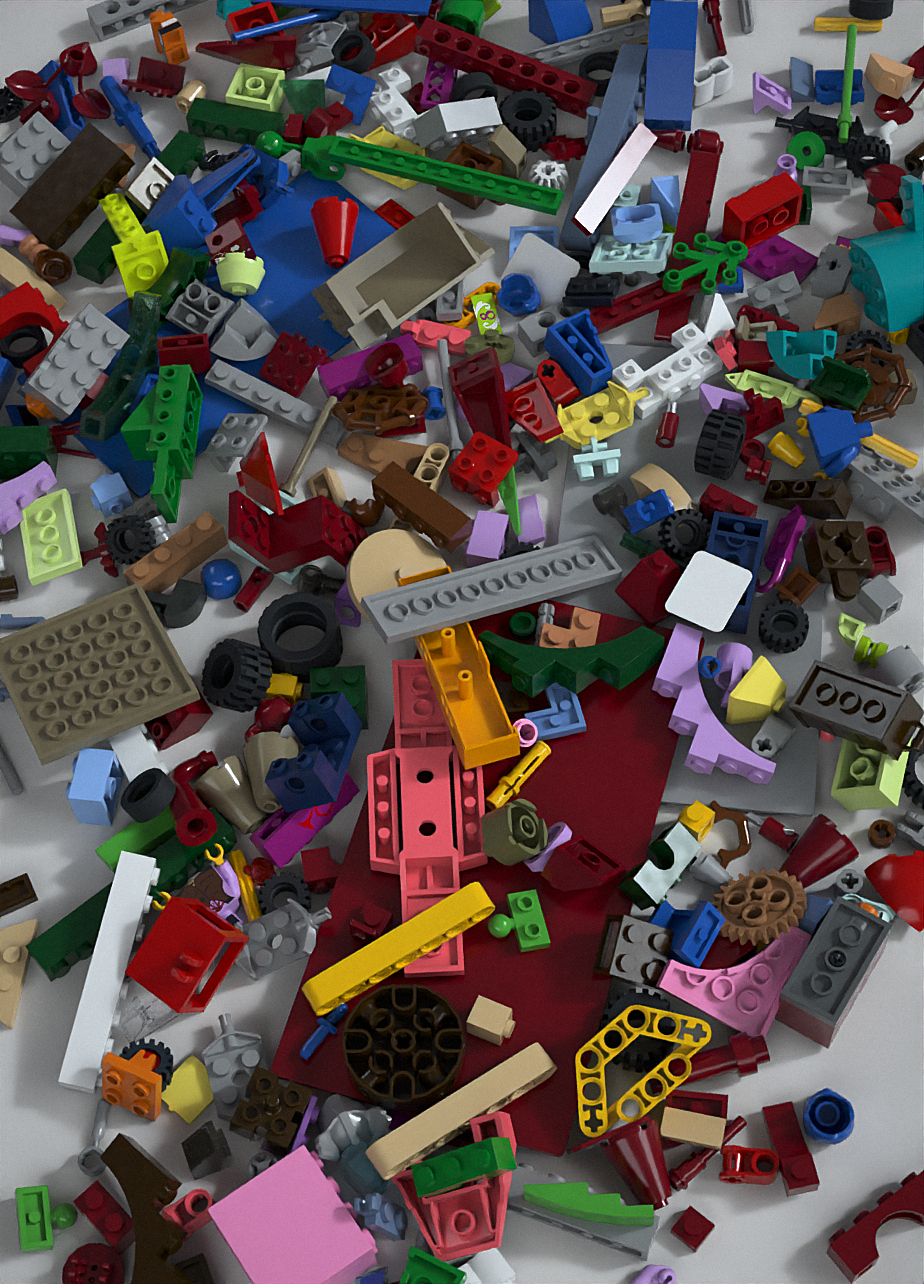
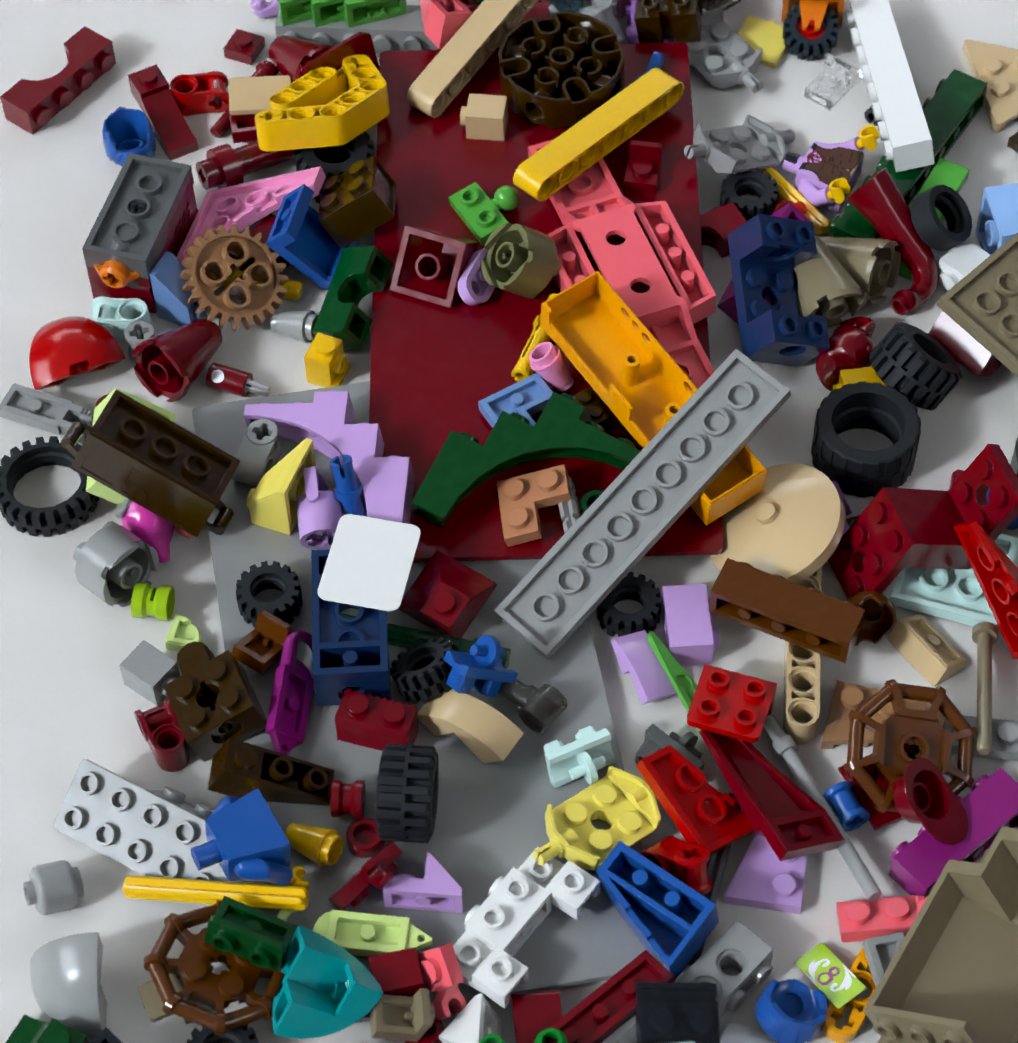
camera: 160 degrees right, 5 degrees down
(181, 952) = (818, 73): red piece -> none
(345, 679) = (801, 407): dark green brick -> none
(501, 343) = (821, 903): olive plate -> none
(667, 427) = (494, 838): dark red piece -> none
(743, 833) = (277, 384): reddish brown helmet -> none

